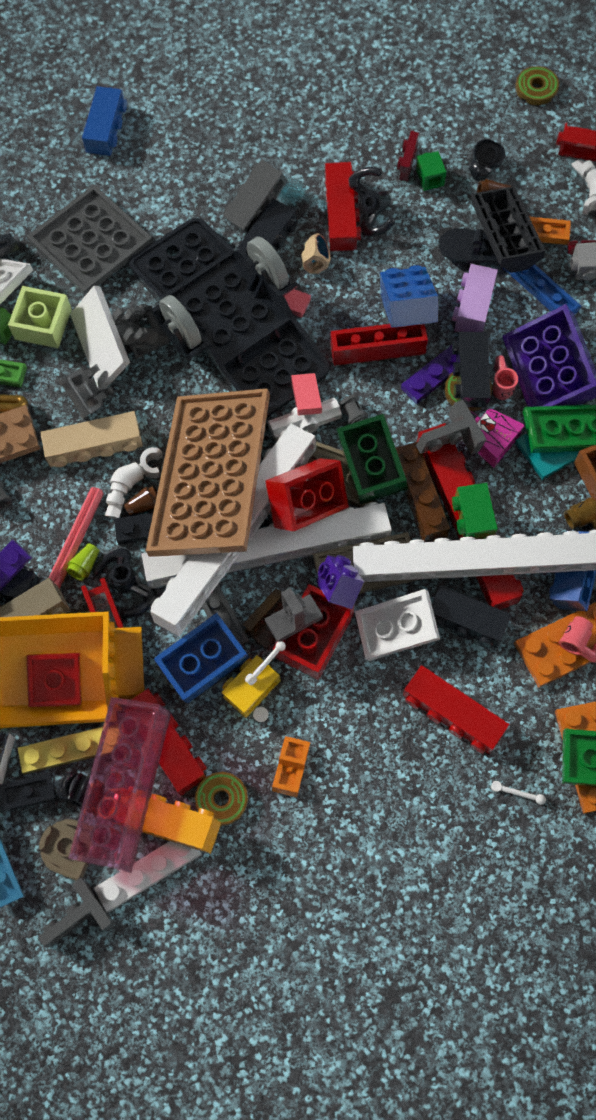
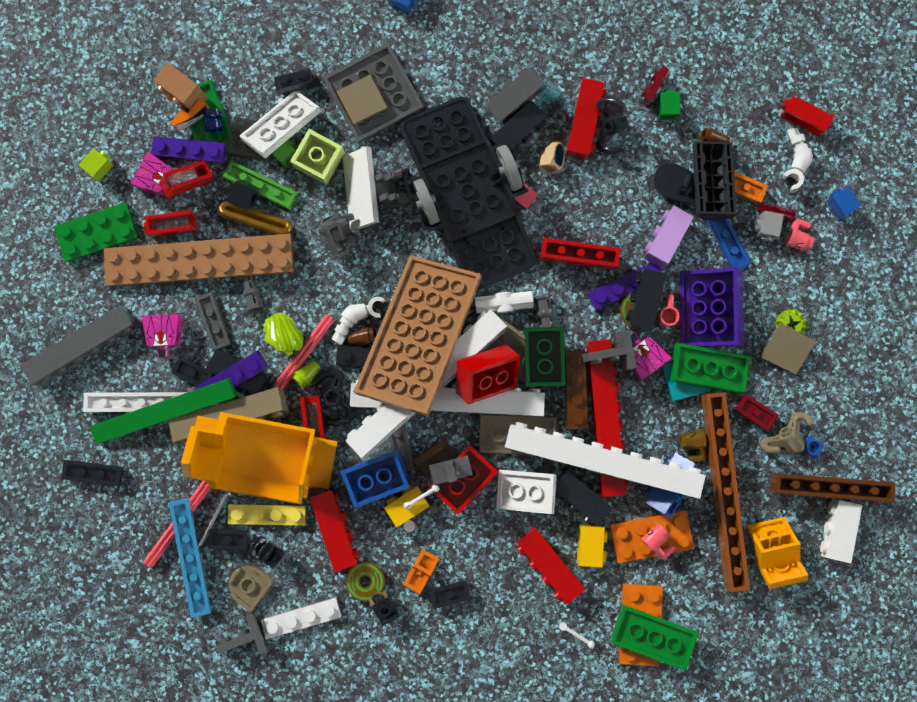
camera: 15 degrees right, 15 degrees up
(44, 516) = (283, 334): none -> lime hair
(54, 679) = (264, 464): red tile -> none
(78, 246) = (362, 100): none -> dark tan tile
(91, 439) = (335, 274): tan brick -> none
(120, 785) = (294, 561): clear pink brick -> none
(181, 824) = (320, 589): light orange brick -> none
(261, 829) = (384, 607): none -> black brick
(306, 394) = (510, 285): coral tile -> none
(336, 783) = (449, 594): none -> black plate
(339, 581) = (492, 451): dark purple brick -> none
(408, 296) = (614, 224): blue brick -> none
(474, 511) = (610, 423): green brick -> none
(486, 157) = (719, 106): black hair -> none
(499, 672) = (591, 545): none -> yellow brick
(541, 76) = (791, 37): pearl gold tile -> none

